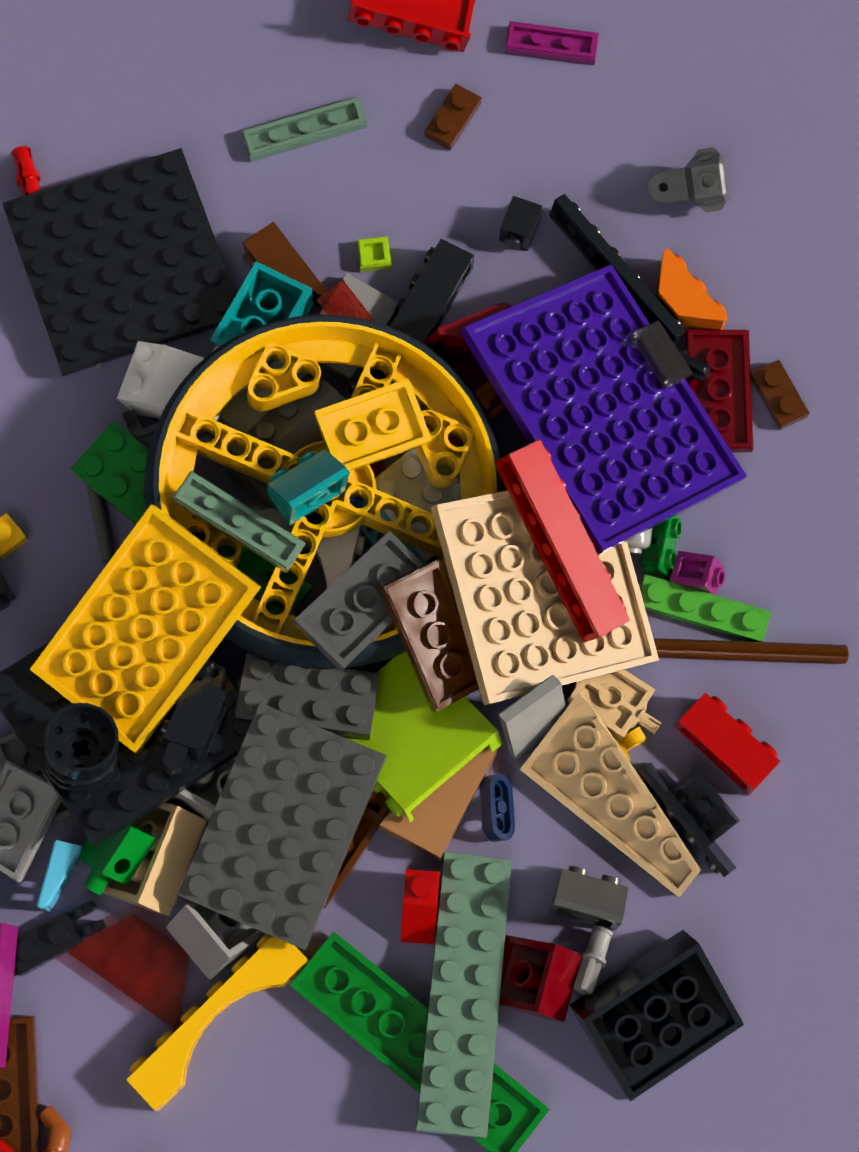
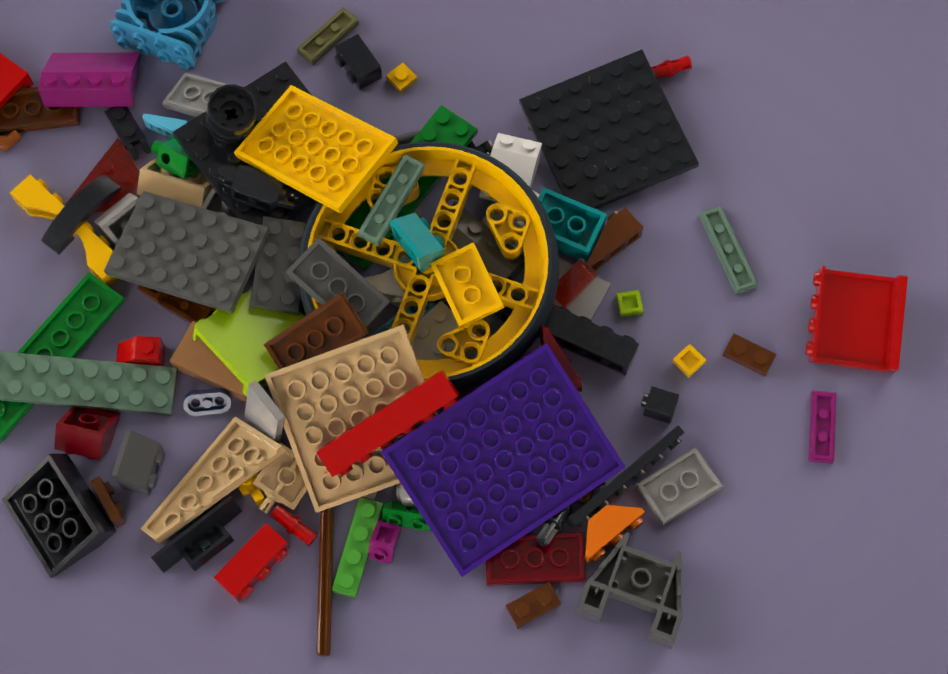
camera: 90 degrees right, 5 degrees down
(196, 999) = (77, 211): none -> black slope
(460, 186) = (689, 360): none -> yellow plate
(593, 960) = (94, 467): light grey axle -> none
(626, 213) = (678, 486): none -> light grey tile
(652, 934) = (105, 492): none -> reddish brown plate
(661, 354) = (551, 505): clear smoke tile -> none
(674, 690) = (294, 525): none -> red pin
(702, 181) = (704, 538): dark grey piece -> none
(756, 262) = (640, 582): none -> dark grey wedge

